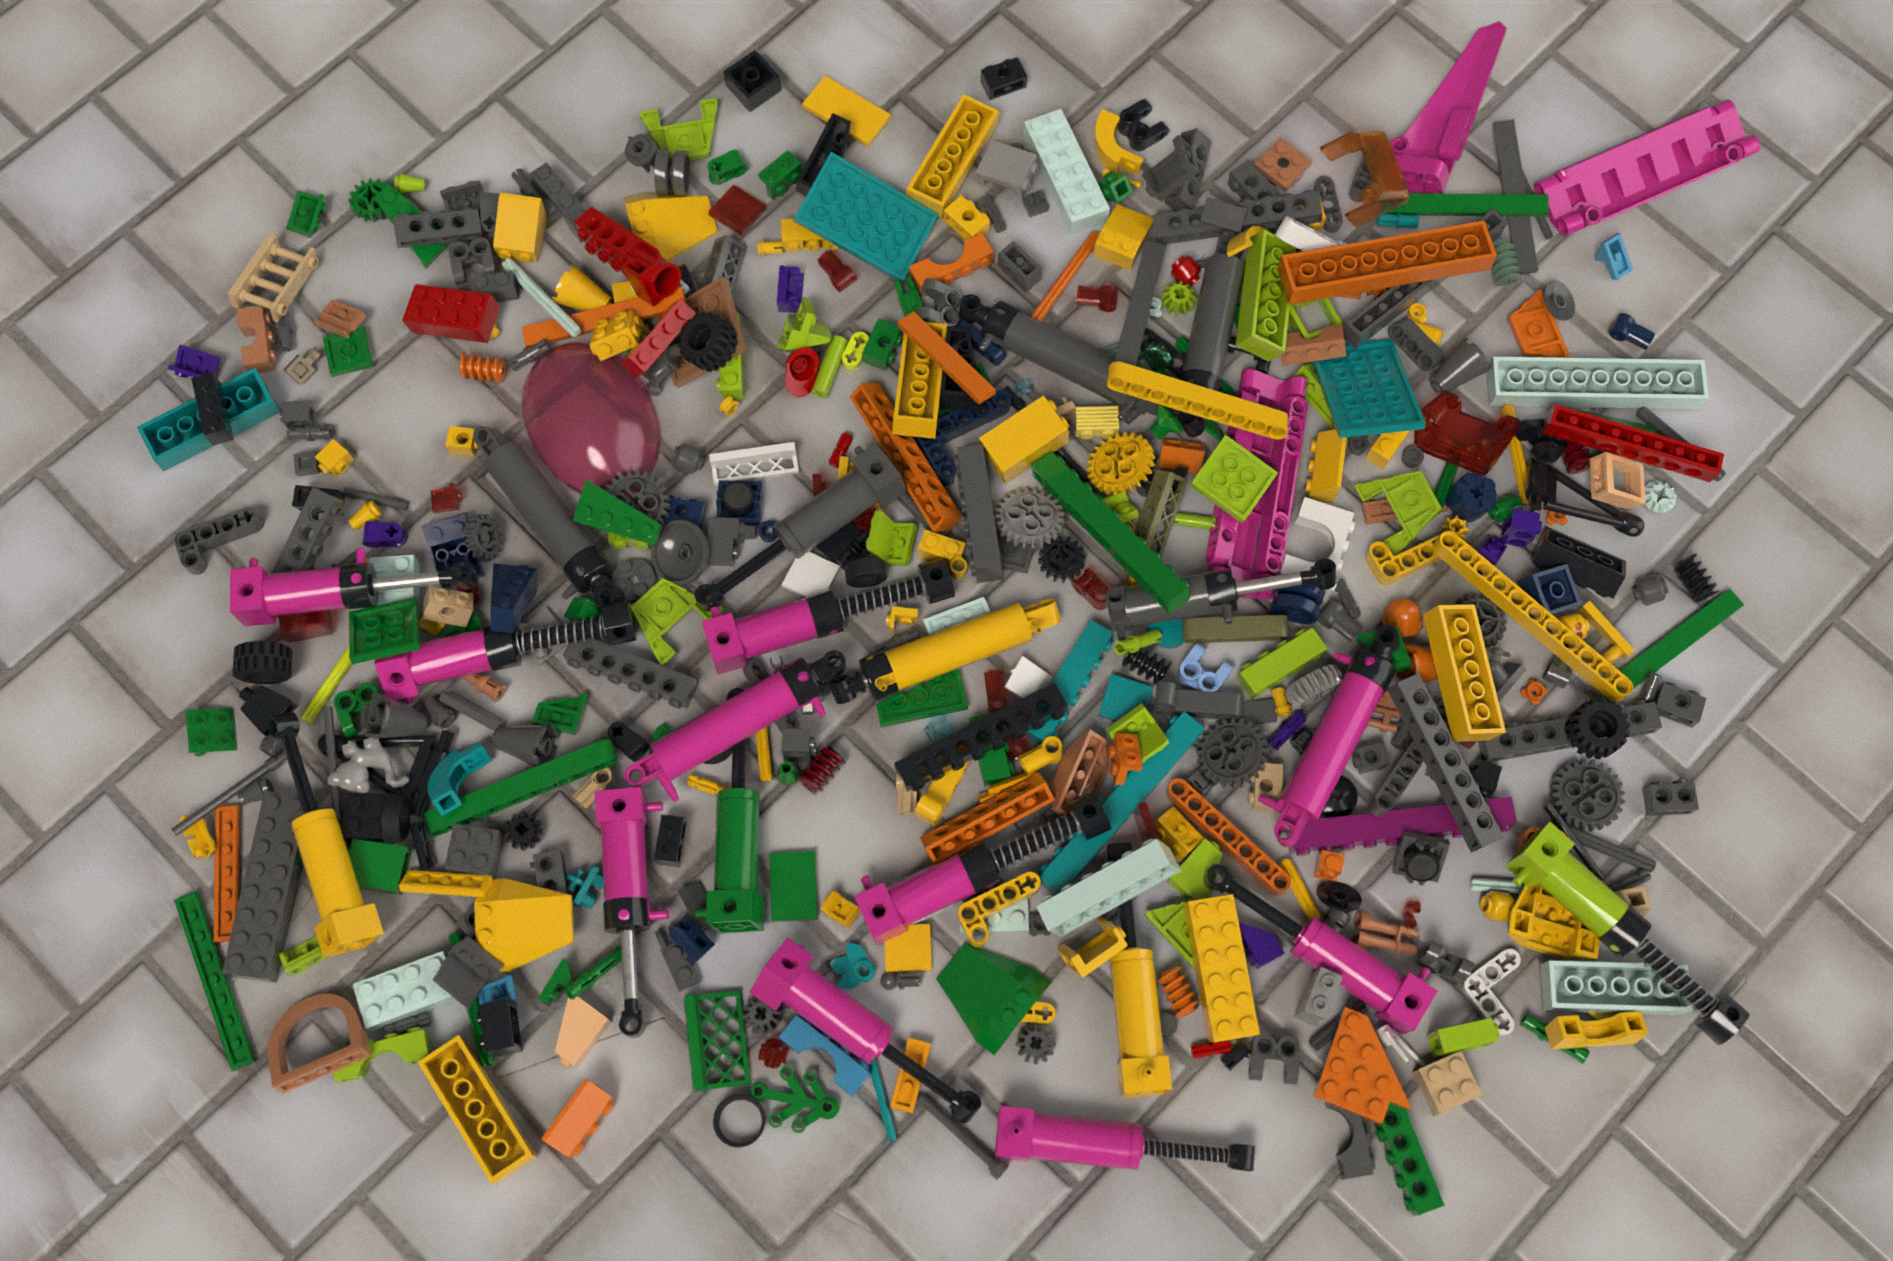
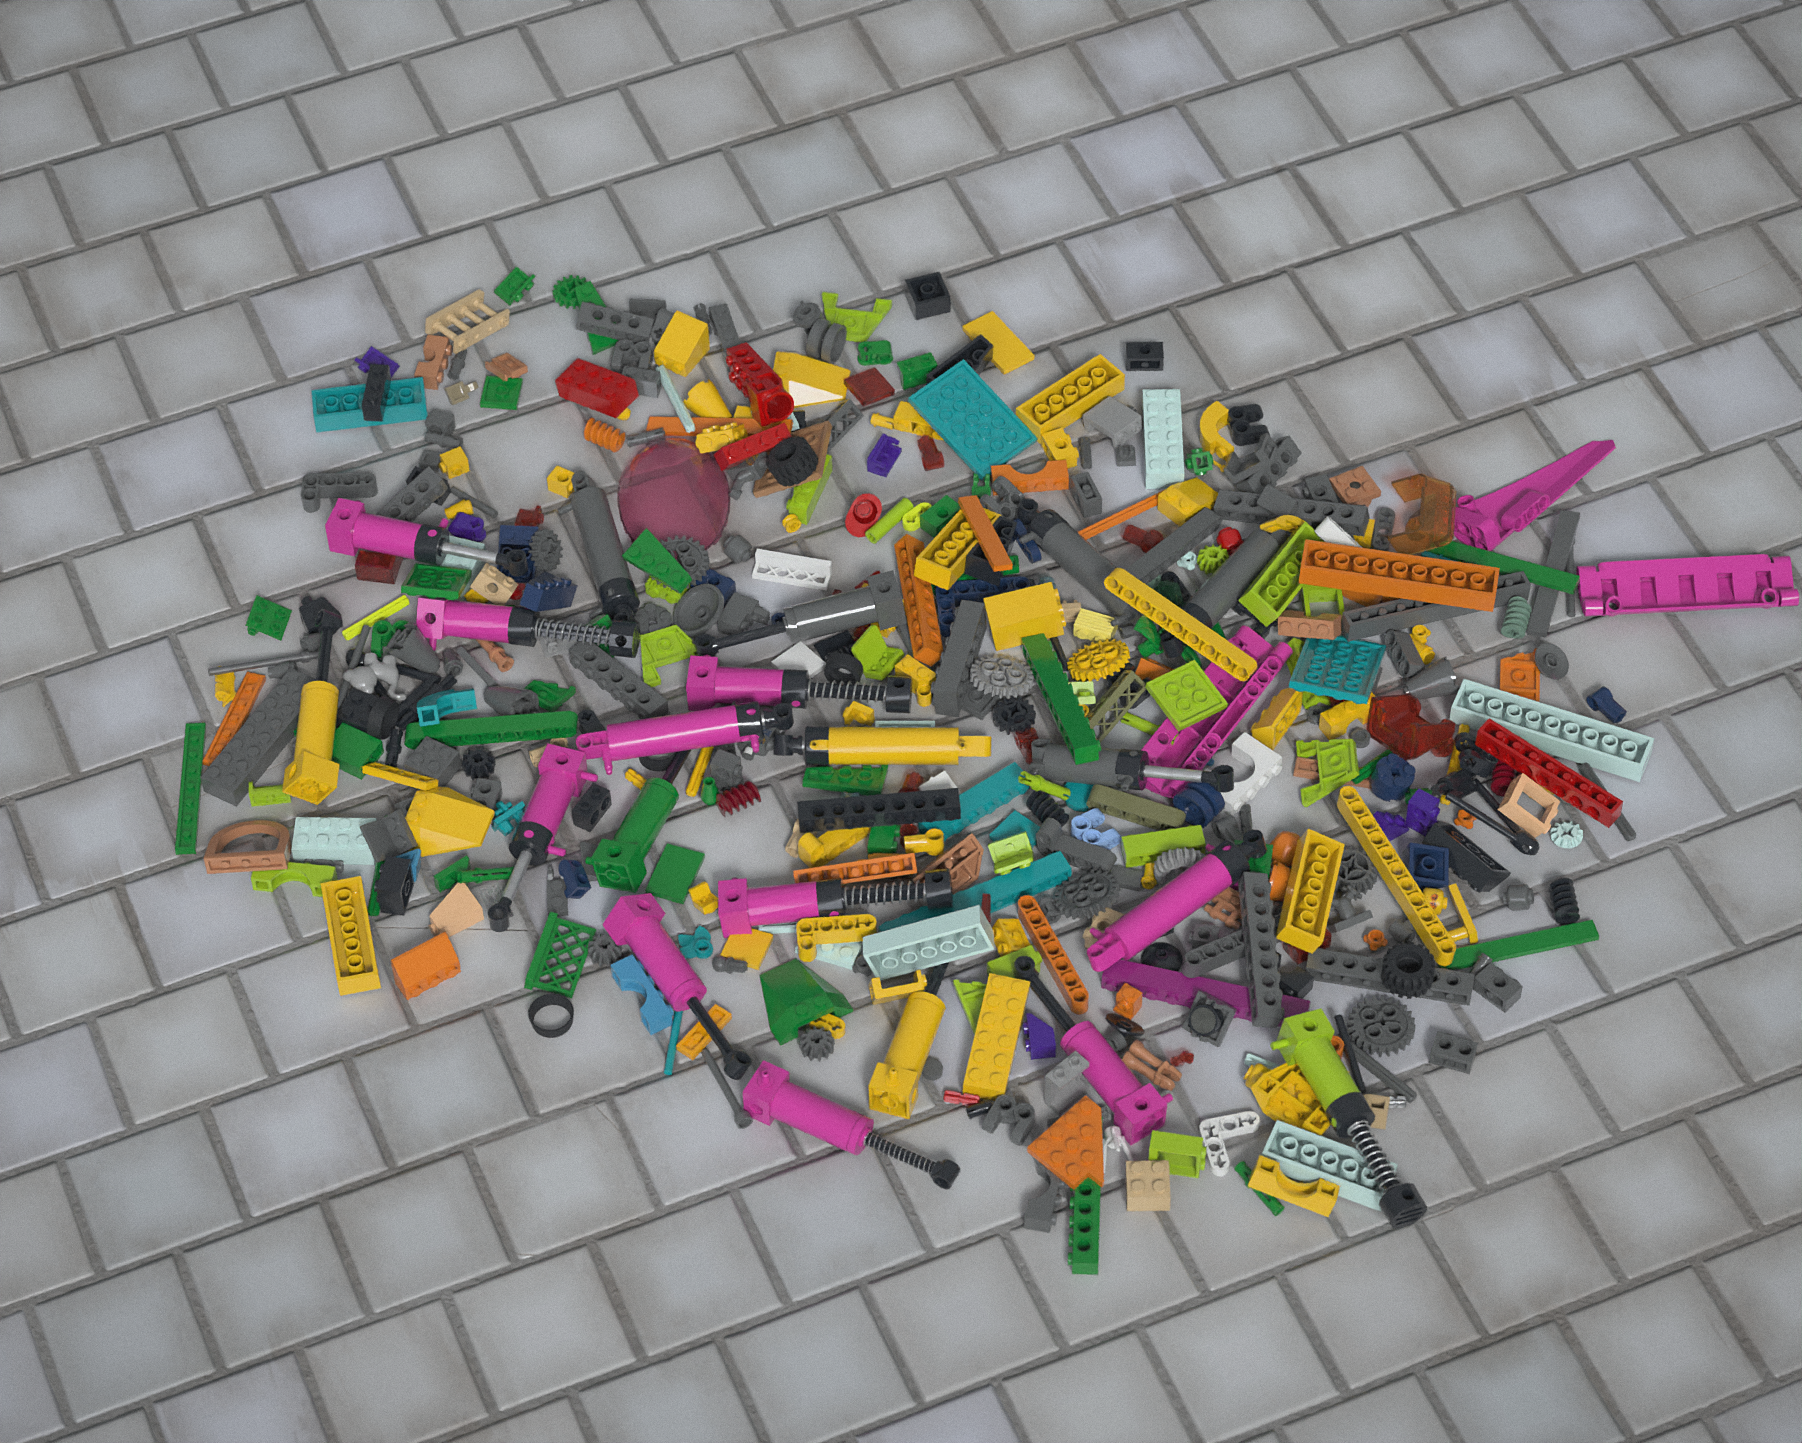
camera: 25 degrees right, 20 degrees down
(262, 662) = (331, 579): black tyre -> none
(406, 183) = (608, 289): lime cone -> none
(740, 500) = (768, 590): piece -> none
(773, 1053) = (601, 977): clear red gear -> none
(798, 1100) = (604, 1019): green plant -> none
(803, 330) = (878, 484): lime piece -> none
(1124, 756) = (993, 860): orange bracket -> none
(1178, 992) = (953, 1047): orange piece -> none
(1287, 730) = (1138, 898): dark purple axle -> none
(1300, 890) = (1095, 1008): yellow axle -> none
(1394, 563) = (1307, 810): yellow beam -> none
(1447, 966) = (1193, 1105): dark grey piece -> none
(1456, 526) = (1370, 798): yellow gear -> none
(1615, 256) = (1620, 642): dark azure slope -> none

